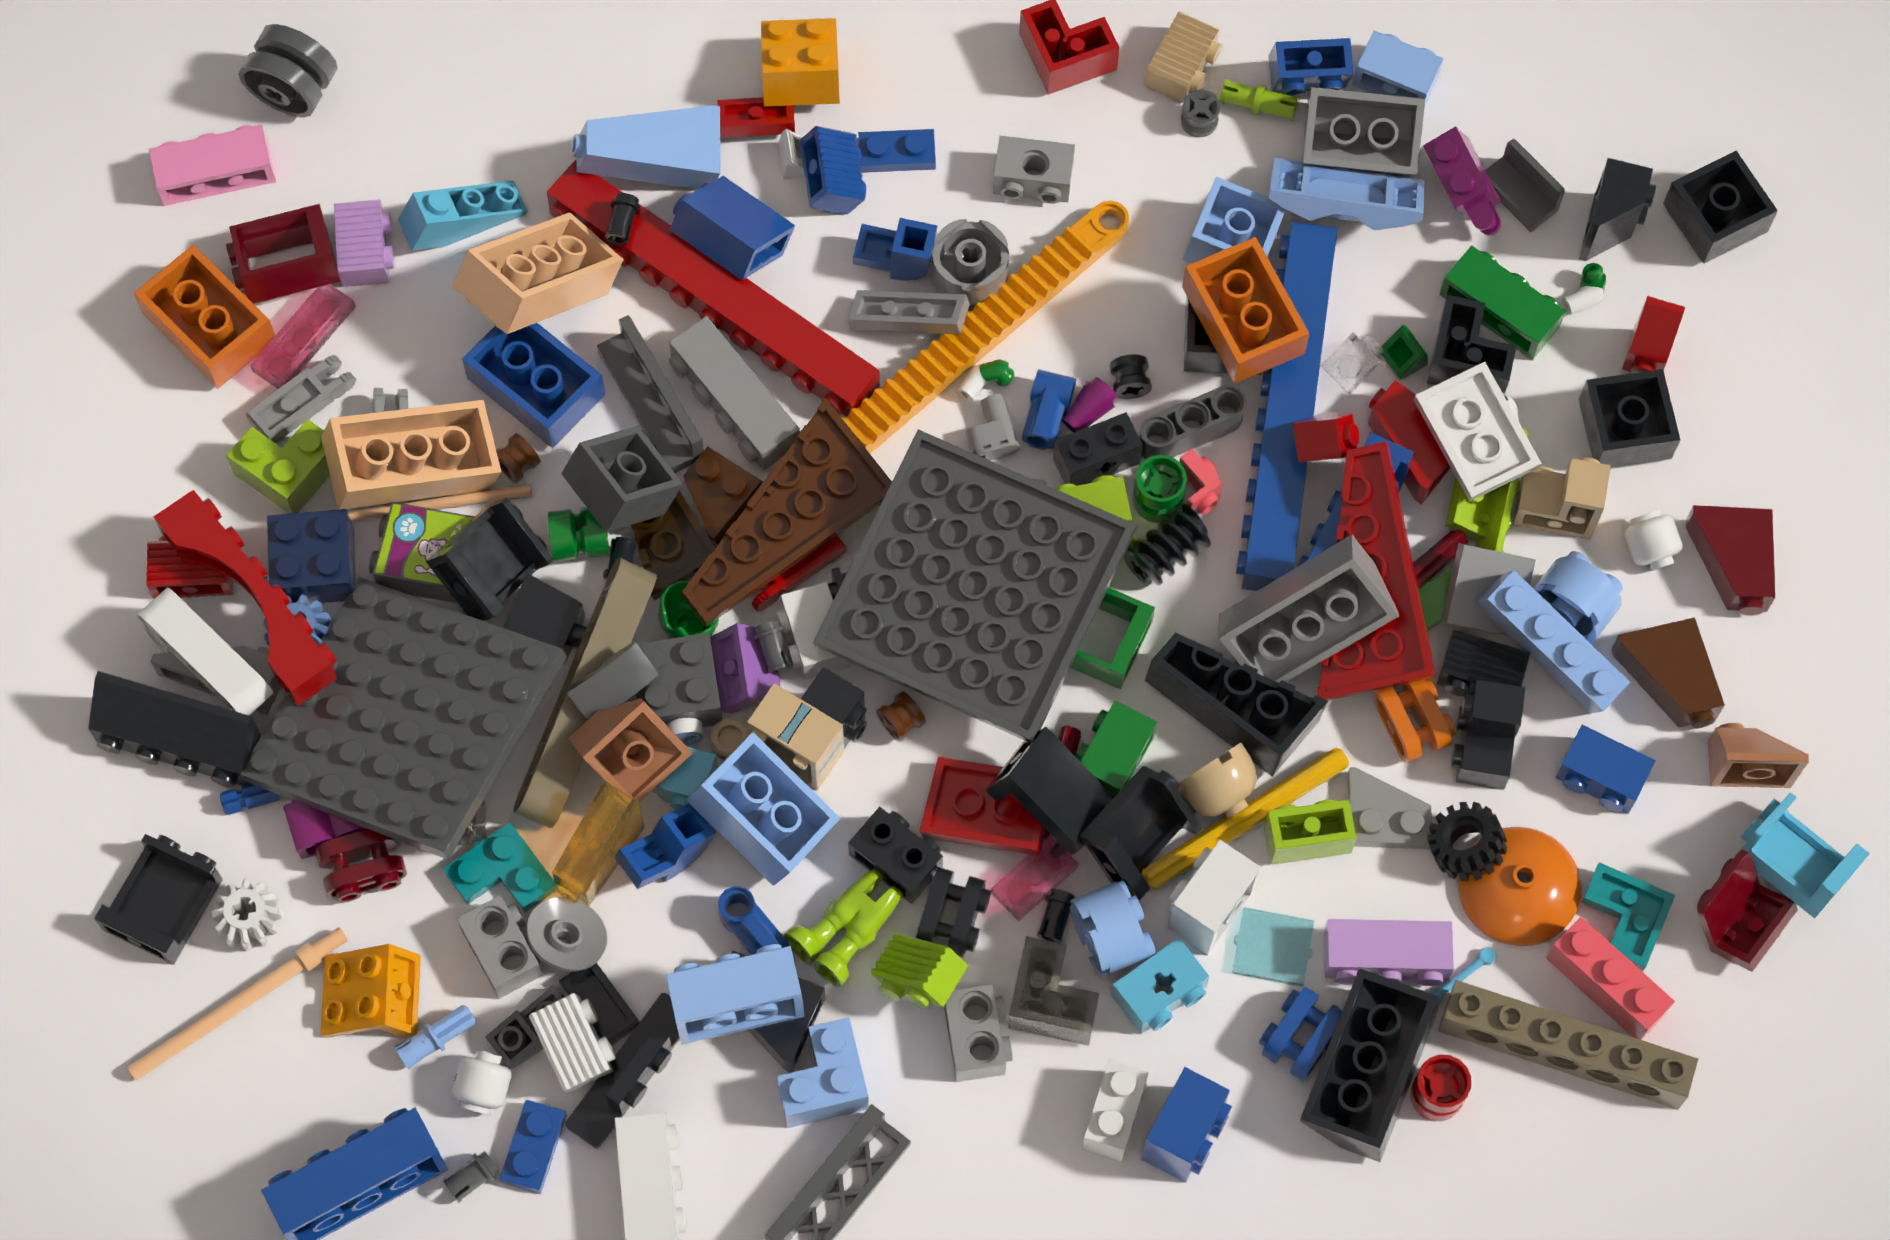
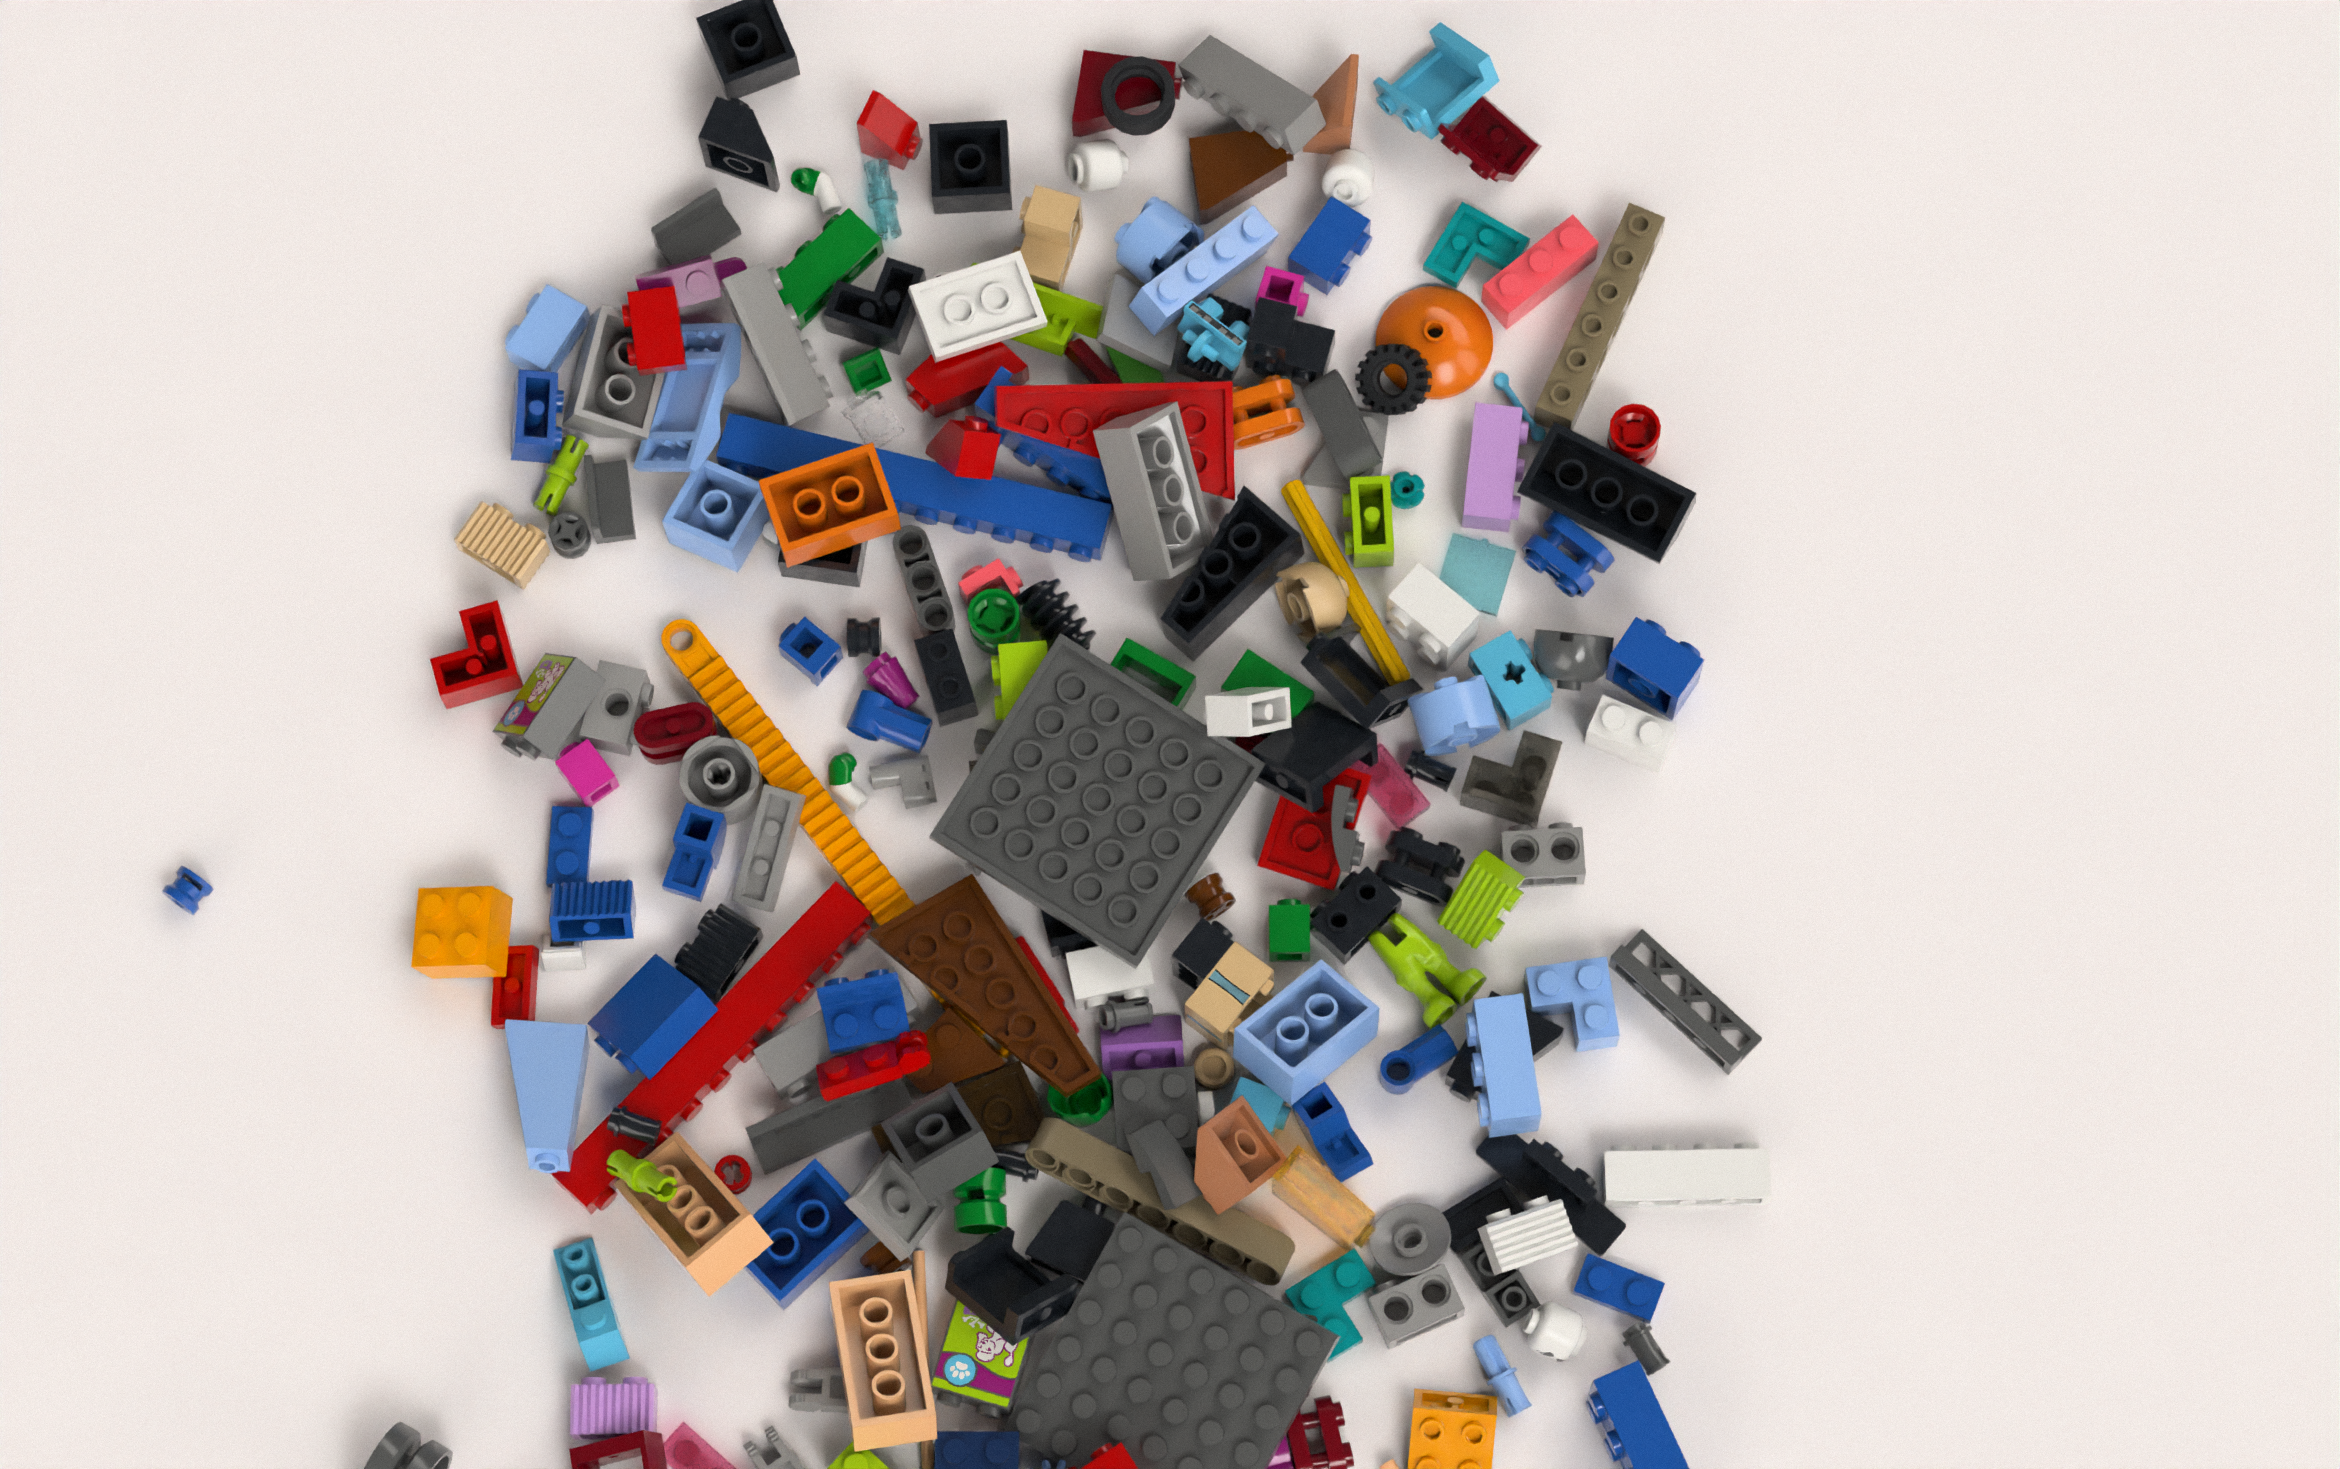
camera: 80 degrees left, 5 degrees up
(550, 448) = (893, 1206): none -> light grey tile
(569, 223) = (642, 1175): none -> lime pin
(589, 311) = (745, 1171): none -> red bush
(695, 415) = (873, 1065): none -> red hinge
(746, 401) = (863, 1010): none -> blue bracket
(805, 282) = (718, 950): none -> black brick
(870, 789) = (1289, 931): none -> green brick
(963, 827) = (1345, 841): none -> dark grey slope
(967, 152) = (586, 772): none -> dark pink brick
(1014, 215) = (671, 731): none -> dark red brick
(1022, 105) = (548, 707): none -> brick
(1080, 715) = (1248, 711): none -> white brick
(1110, 316) = (805, 635): none -> blue brick
(1192, 1040) = (1571, 657): none -> dark grey cylinder
(1239, 140) = (609, 500): none -> dark grey panel
(1353, 878) = (1413, 497): none -> teal plate
(1404, 145) = (655, 330): none -> red brick
(1408, 792) = (1342, 424): none -> dark grey beam
(1409, 253) = (775, 343): none -> light grey slope
(1491, 641) = (1210, 336): none -> medium azure hips
(1540, 723) = (1284, 288): none -> dark pink brick
(1585, 349) = (882, 199): none -> clear light blue pin
(1681, 779) = (1348, 177): none -> white head
(1740, 534) = (1131, 68): none -> black tyre
(1750, 670) = (1251, 95): none -> light grey brick

